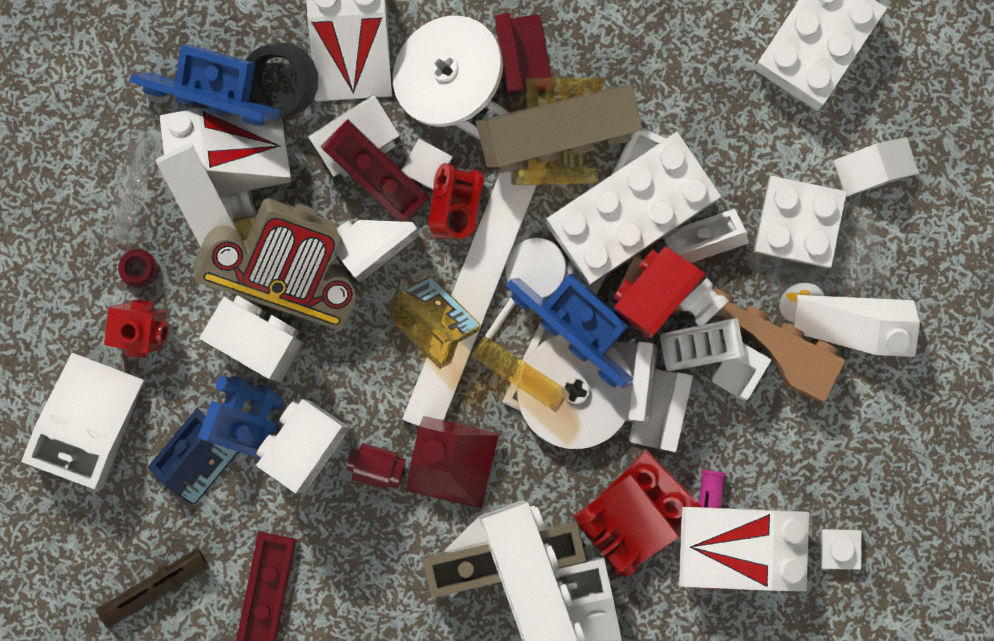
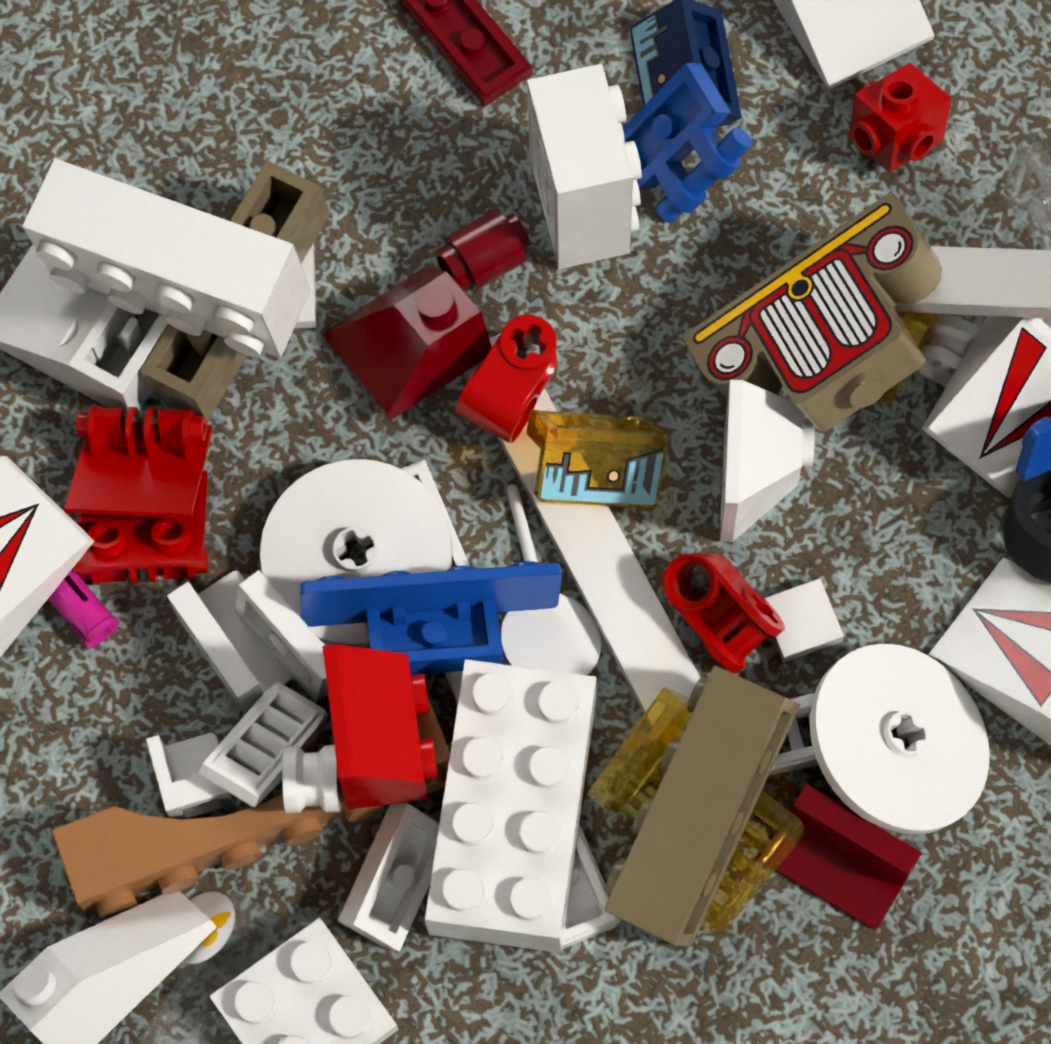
camera: 130 degrees right, 15 degrees down
(129, 259) = (976, 169): dark red plate -> none
(244, 335) = (759, 208): white brick -> none
(369, 119) = (914, 555): white brick -> none
(374, 171) = (846, 536): dark red tile -> none
(441, 389) = (508, 386): none -> red piece
(520, 374) = (433, 496): clear yellow piece -> none

